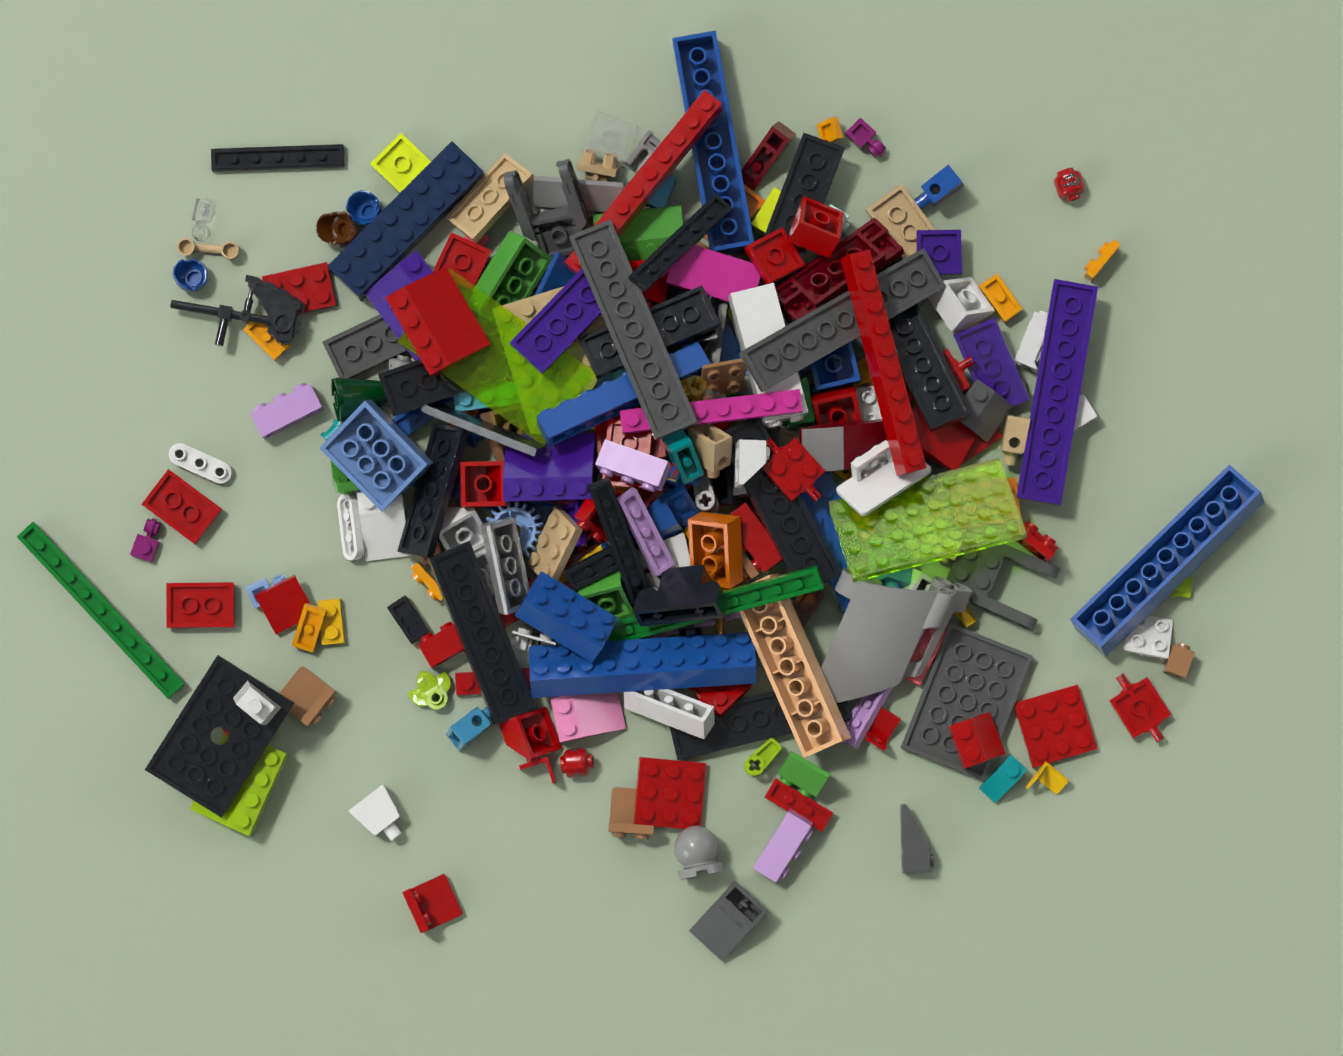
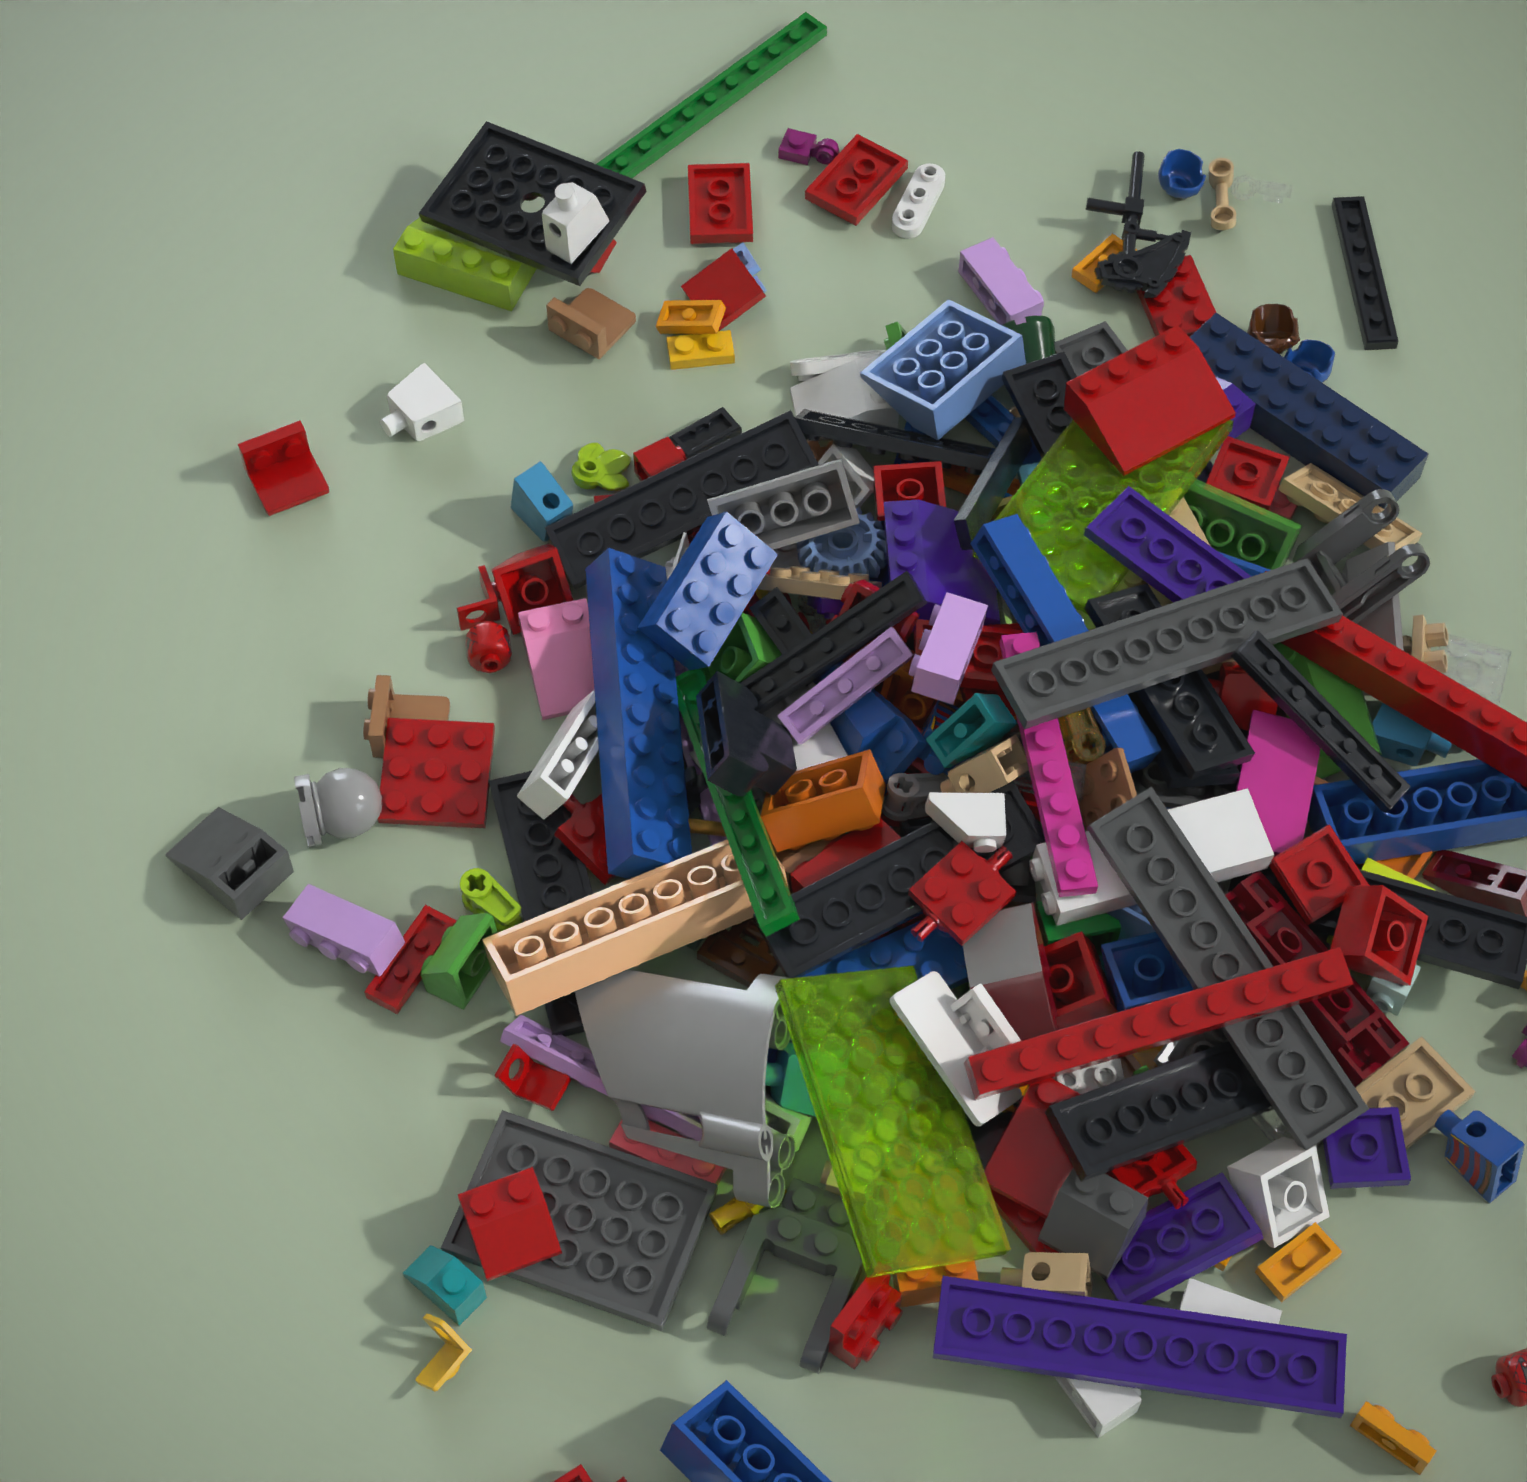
camera: 90 degrees right, 25 degrees down
(400, 162) = (1388, 401): neon yellow plate -> none
(914, 849) = (332, 1135): dark grey slope -> none
(1054, 726) = (537, 1374): red plate -> none

